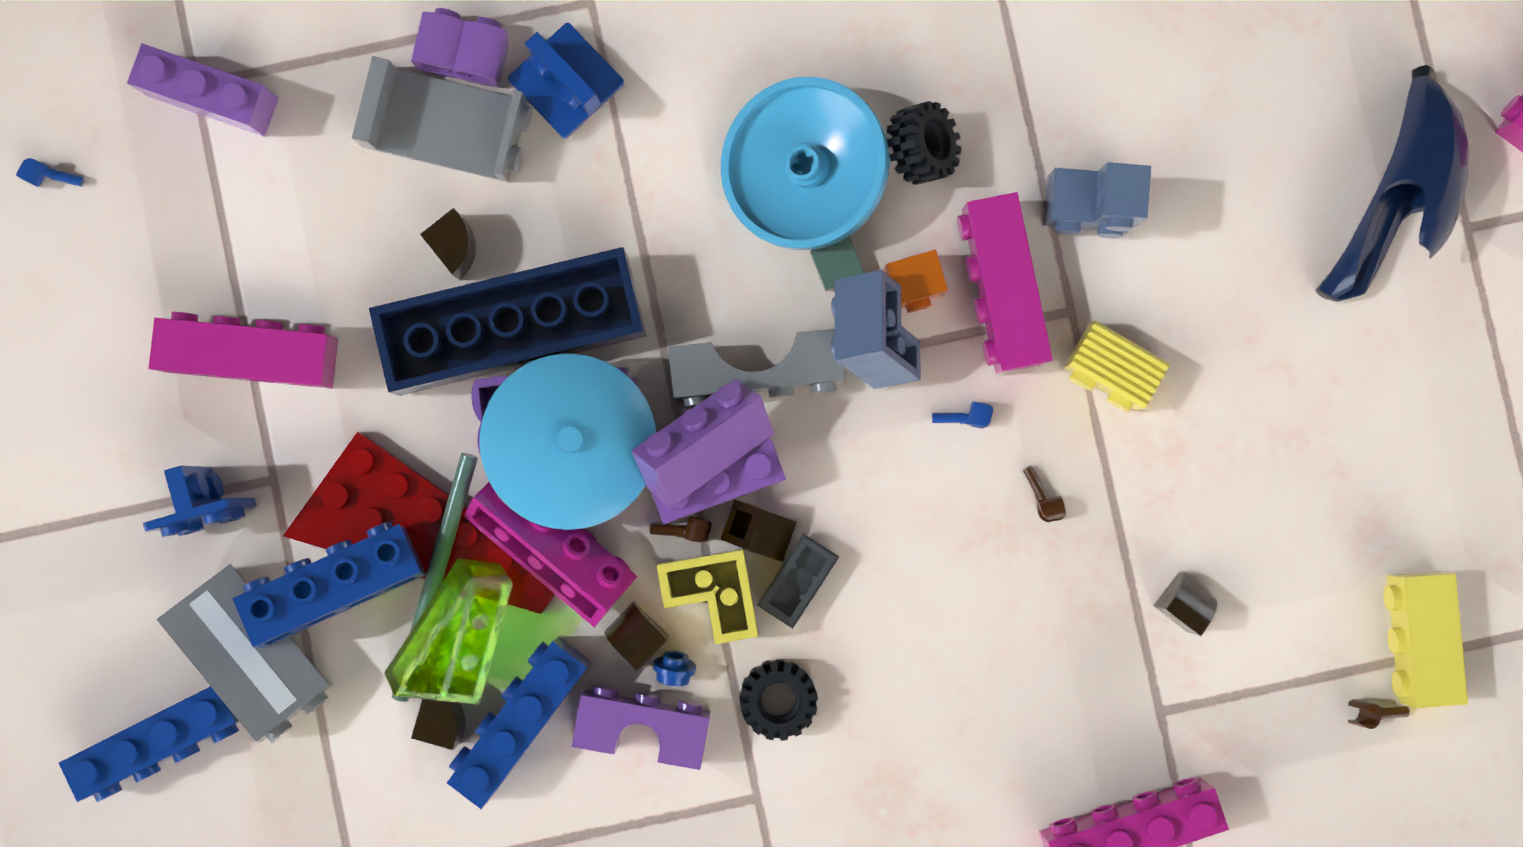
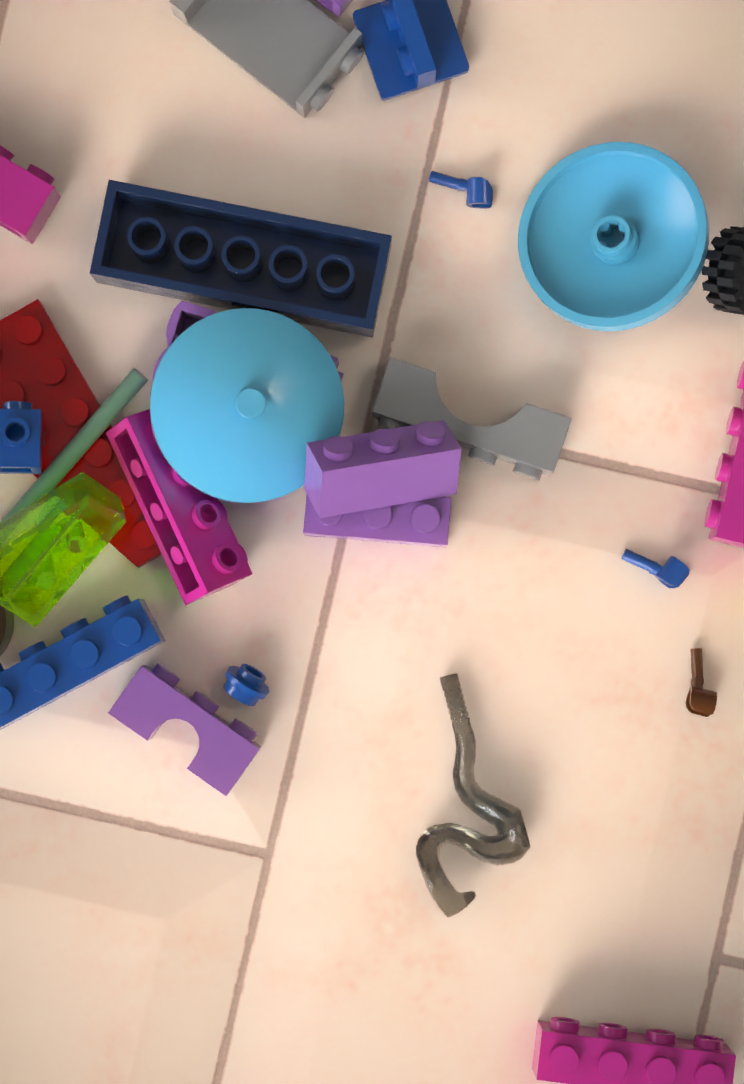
camera: 25 degrees right, 0 degrees up
(452, 242) = (221, 152): dark brown brick -> none
(635, 636) = (222, 633): dark brown brick -> none
(677, 176) = (477, 188): none -> blue hand
(696, 530) = (332, 556): reddish brown hand -> none
(721, 582) = (335, 621): light yellow brick -> none
(758, 530) = (395, 585): dark brown brick -> none
(789, 723) = (342, 793): black tyre -> none
(797, 580) = (411, 654): dark grey plate -> none
(836, 262) = (599, 353): sand green tile -> none
(870, 331) = (601, 437): sand blue brick -> none
(919, 279) = (668, 406): orange brick -> none
(948, 700) = (504, 848): none -> clear smoke animal

